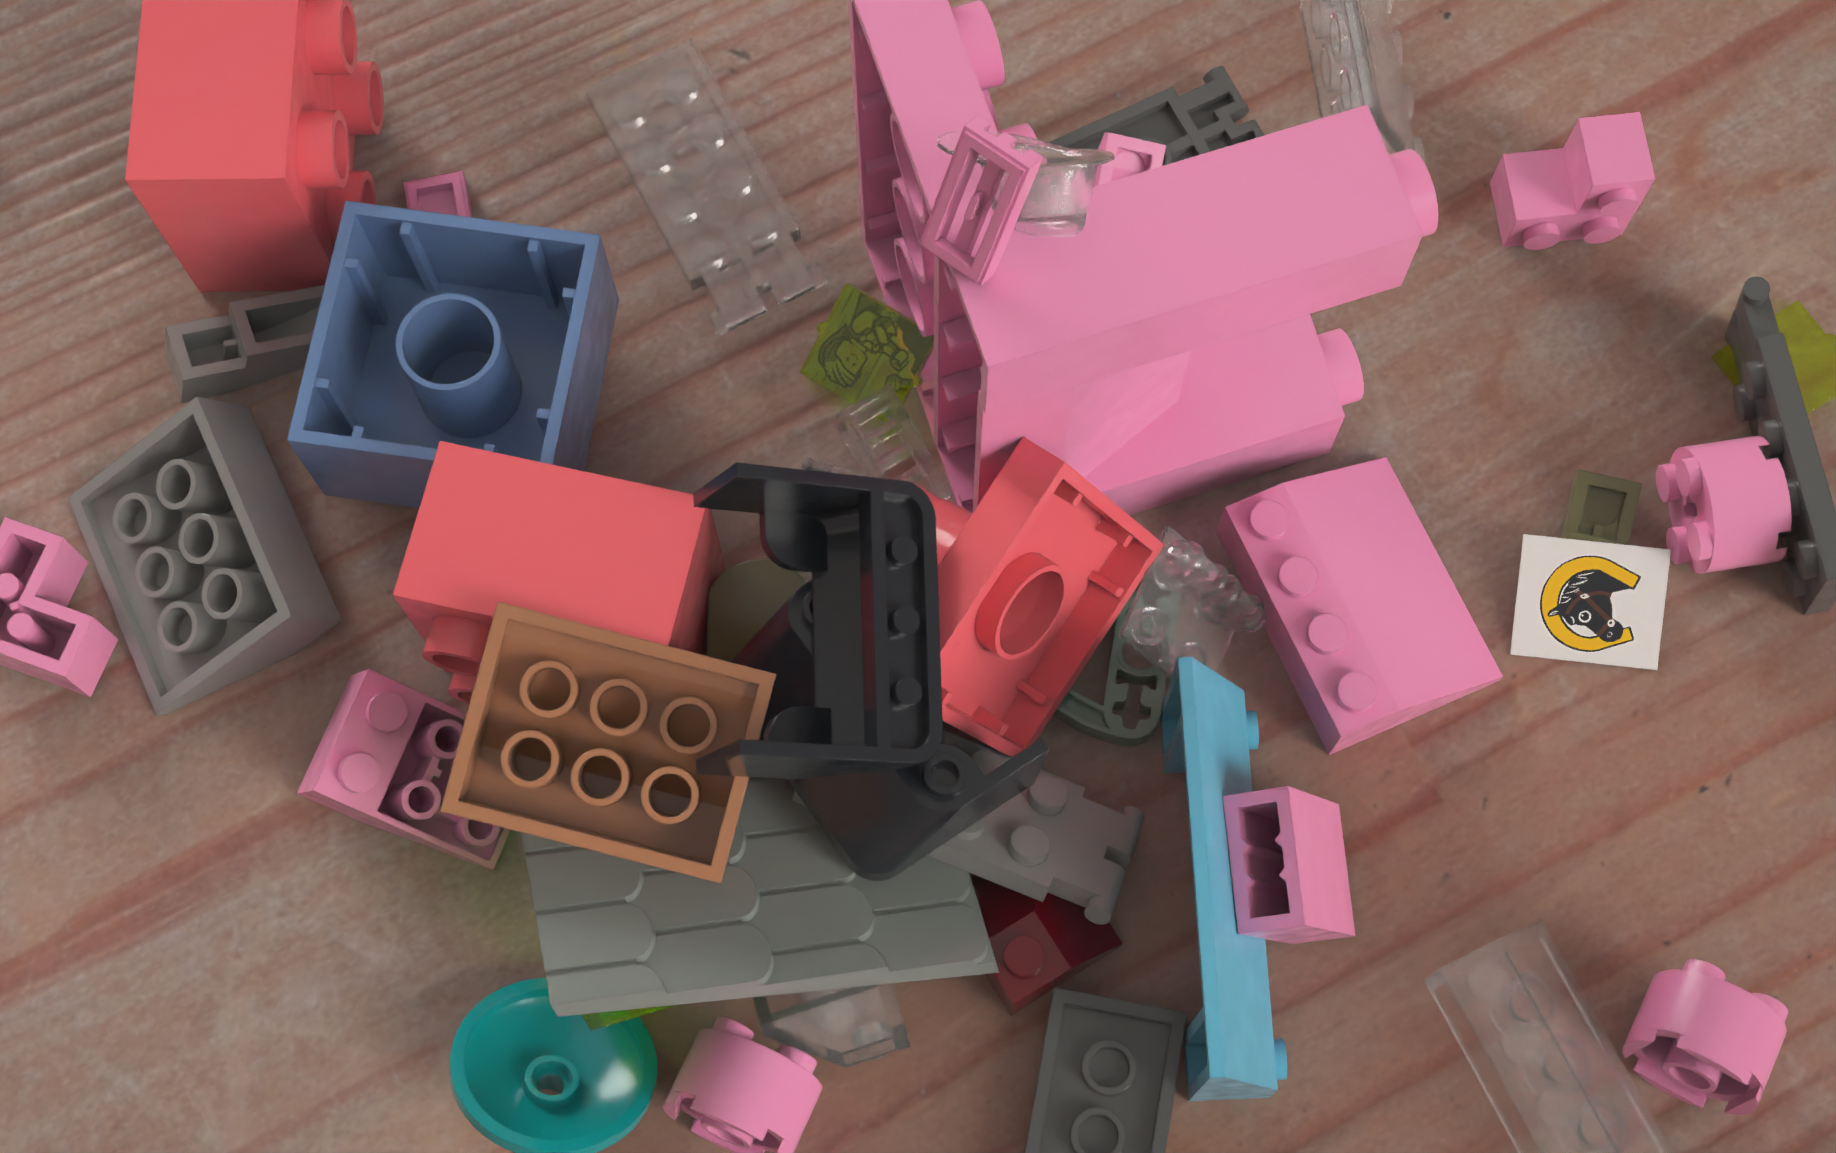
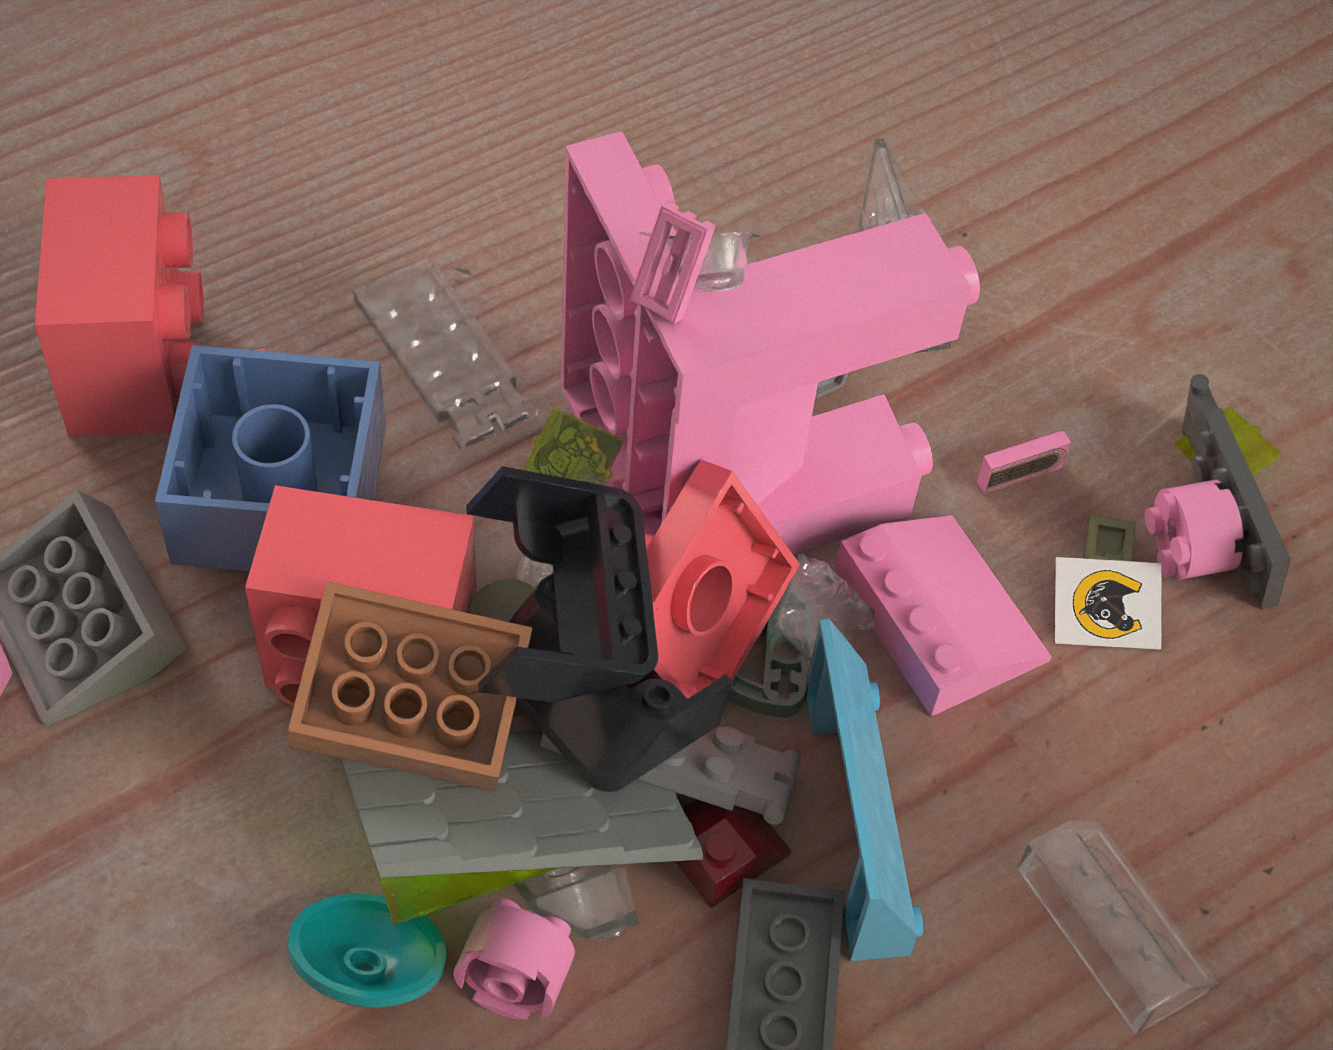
camera: 10 degrees left, 15 degrees down
(246, 347) = (111, 466): light grey slope -> none
(390, 768) = (239, 751): bright pink slope -> none
(1288, 866) = (911, 776): bright pink brick -> none
(1494, 382) = (1023, 461): none -> tile
(1575, 190) = (1068, 336): bright pink brick -> none
(1706, 1037) = (1226, 885): bright pink brick -> none

